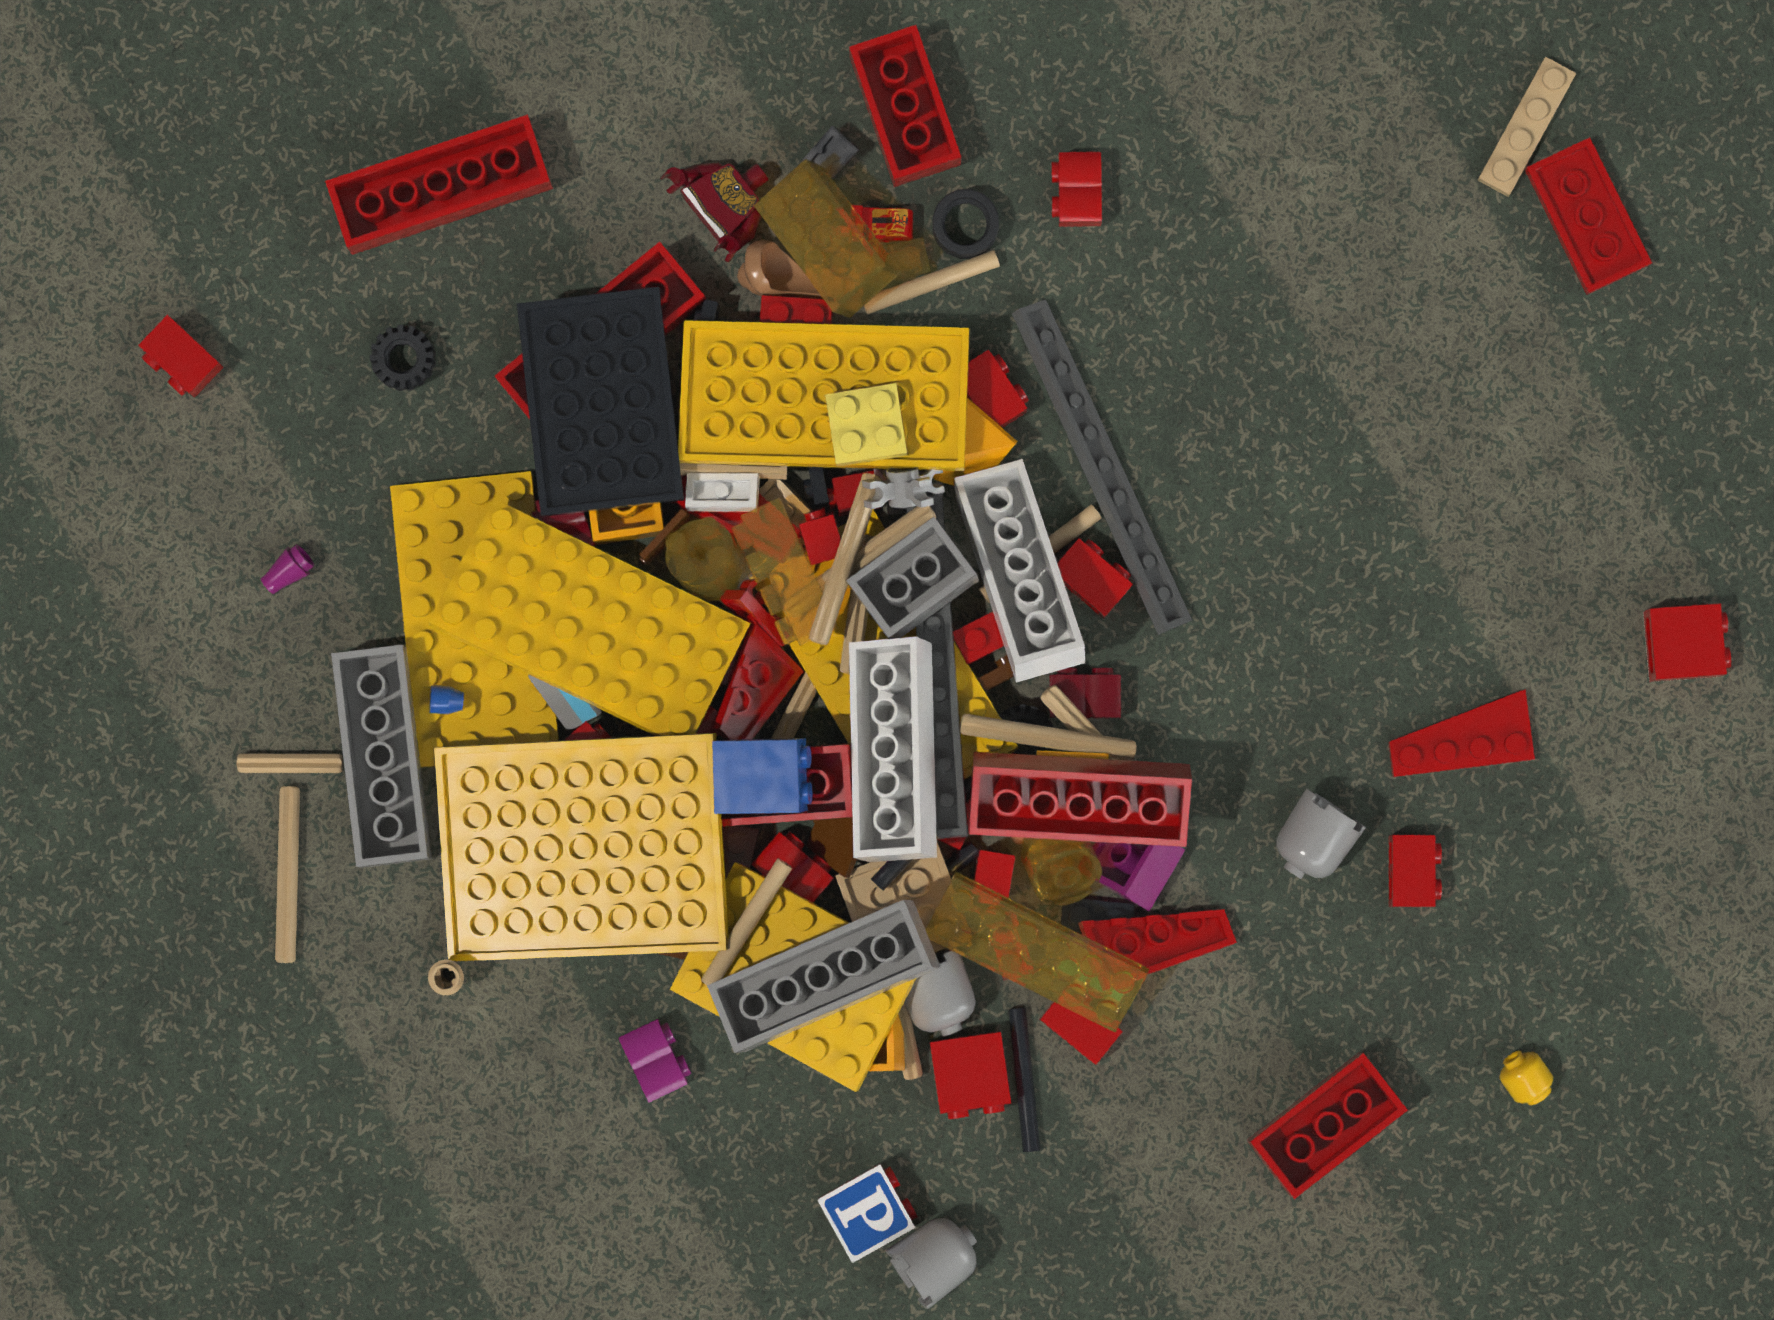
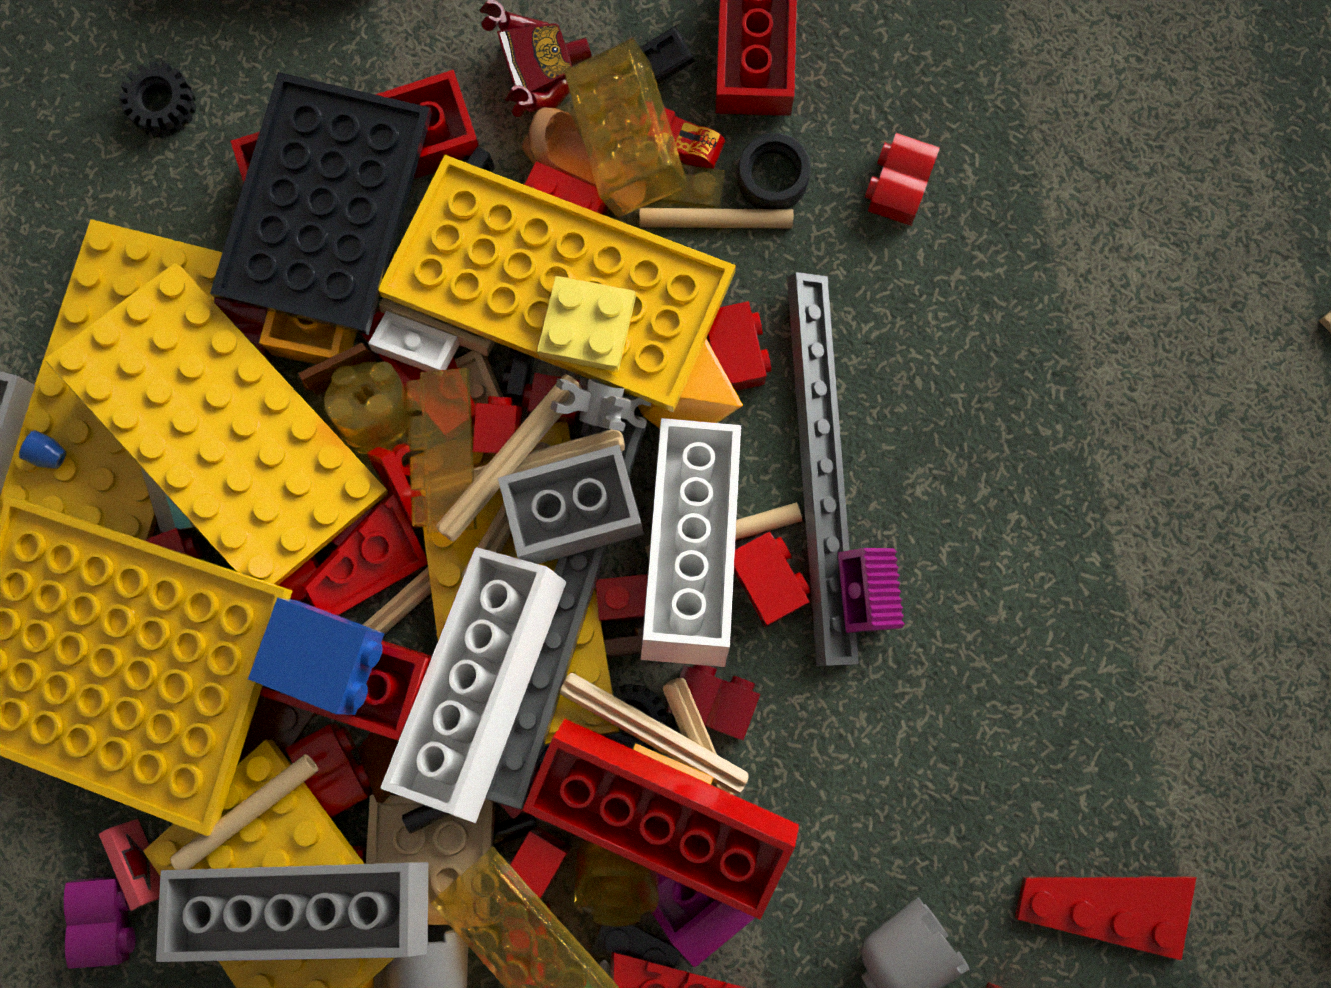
camera: 25 degrees right, 5 degrees down
(664, 1004) = (131, 866): none -> coral tile
(1179, 555) = (870, 590): none -> magenta brick

